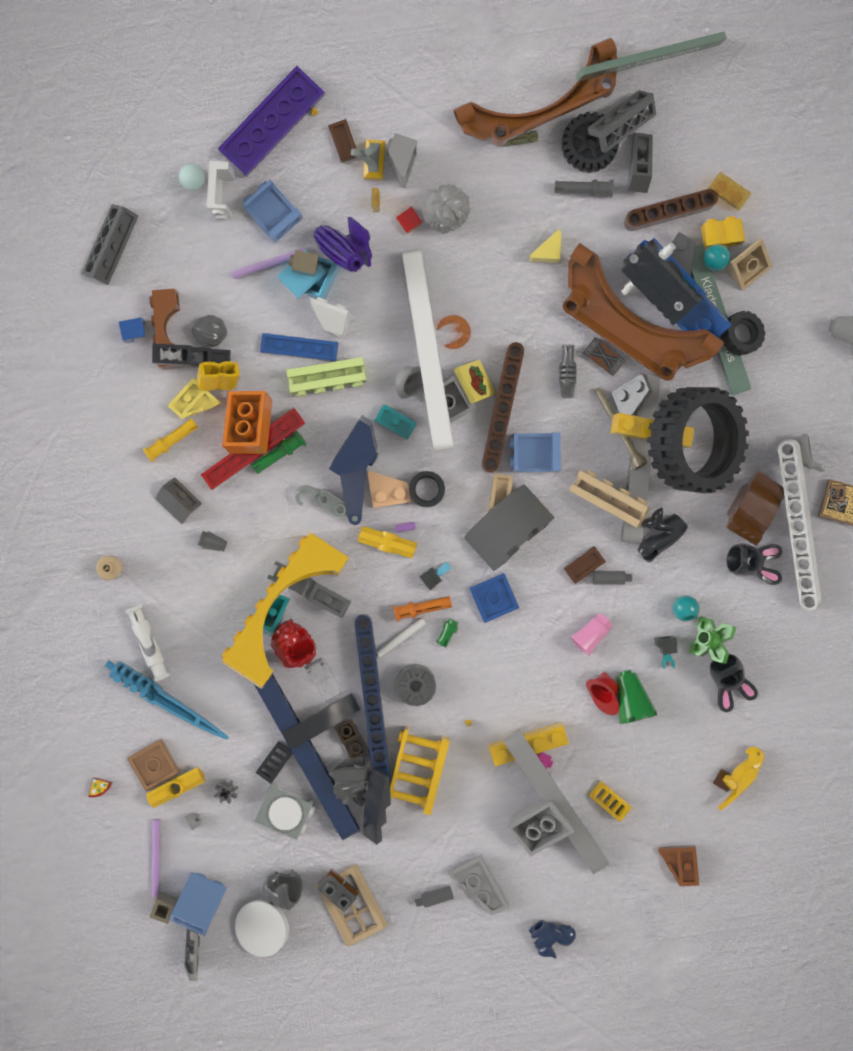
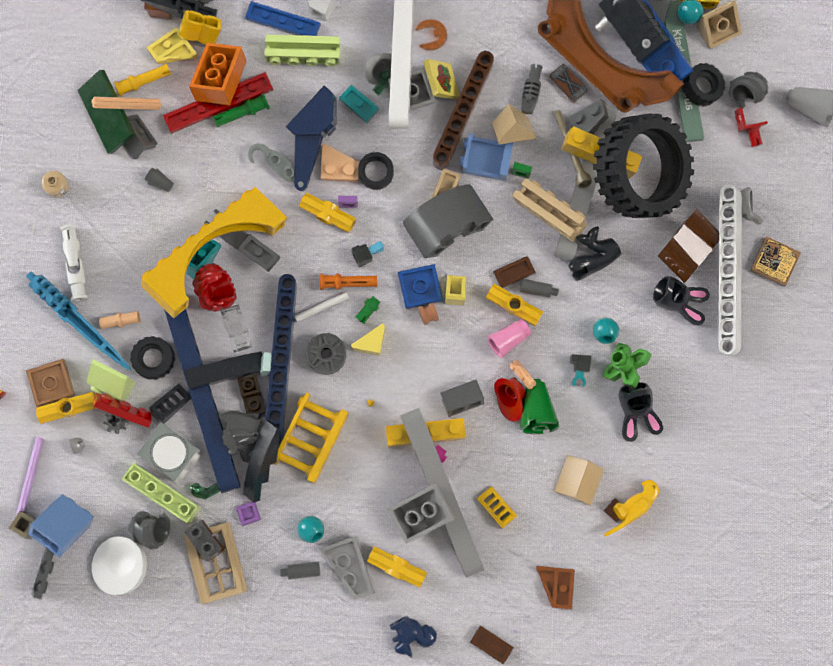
camera: 10 degrees right, 10 degrees down
(143, 482) = (110, 124): none -> dark green tile
(162, 473) = (126, 103): none -> light nougat axle
(206, 690) = (119, 320): none -> light nougat pin
(211, 754) = (109, 381): none -> yellowish green slope
(230, 782) = (122, 409): none -> red plate
(247, 736) = (152, 372): none -> black tyre
(286, 852) = (161, 493): none -> yellowish green brick
(325, 842) = (204, 493): none -> clear green arm
(359, 708) = (265, 364): none -> light aqua tile
(373, 853) = (248, 513): none -> medium lavender tile
(416, 392) = (382, 83): none -> clear green arm
(436, 858) = (310, 529): none -> teal piece
(457, 665) = (371, 342): none -> light yellow slope
(508, 625) = (428, 313): none -> nougat wheel
(525, 876) = (397, 567): none -> yellow piece
(530, 595) = (455, 290): none -> light yellow slope
(556, 417) = (512, 126): none -> tan slope
(557, 702) = (462, 398): none -> dark grey hinge
(575, 460) = (521, 170): none -> green tile
(602, 604) = (525, 311): none -> yellow piece
(612, 669) = (522, 374): none -> light nougat axle
(628, 930) = (491, 644): none -> reddish brown tile
(684, 759) = (579, 479): none -> tan slope
(789, 324) = (749, 85): none -> dark grey helmet
(799, 369) = (753, 129): none -> red bracket

